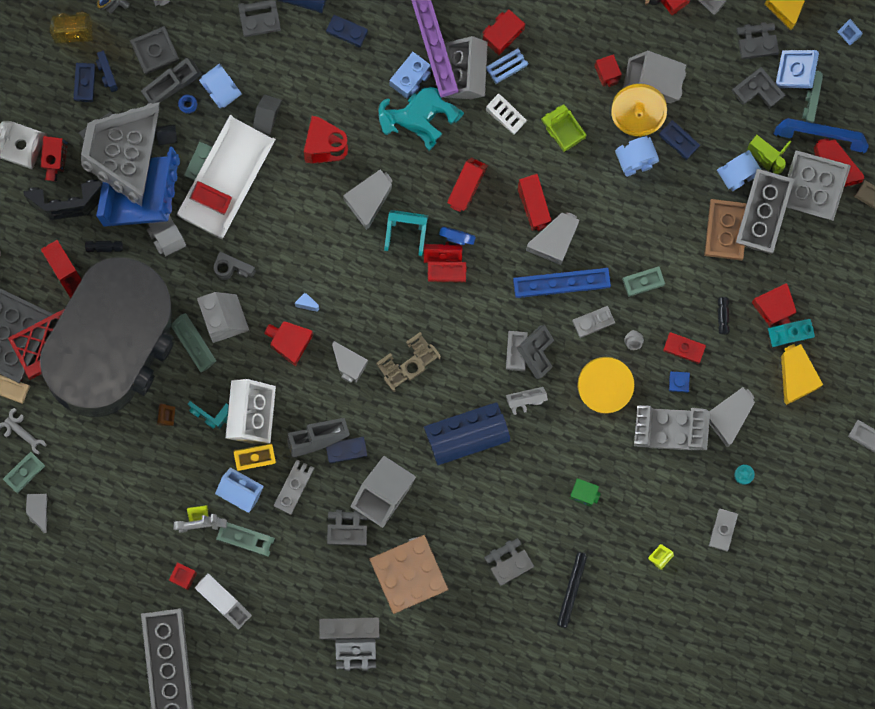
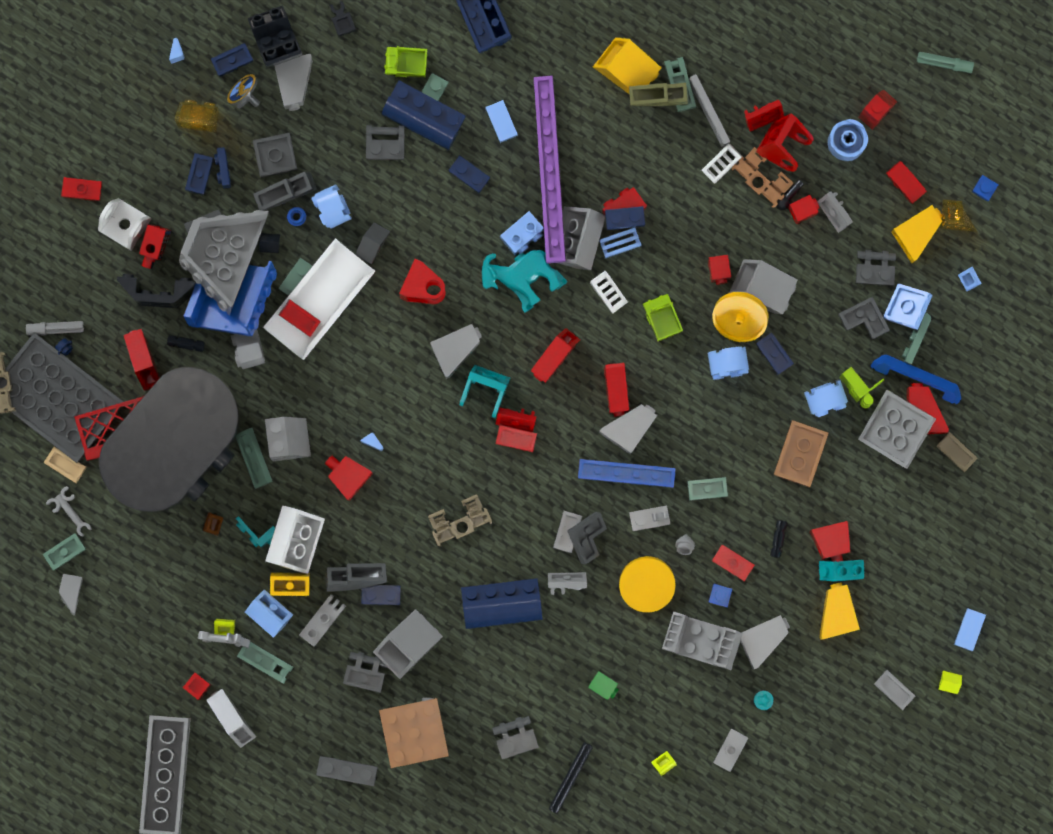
camera: 10 degrees right, 5 degrees up
(243, 269) = (316, 395): dark grey plate -> none
(349, 363) = (401, 510): light grey slope -> none
(355, 650) = (348, 792): dark grey plate -> none
(457, 236) = (526, 403): blue piece -> none
(507, 39) = (625, 218): none -> dark blue plate
(764, 211) = (841, 445): light grey slope -> none

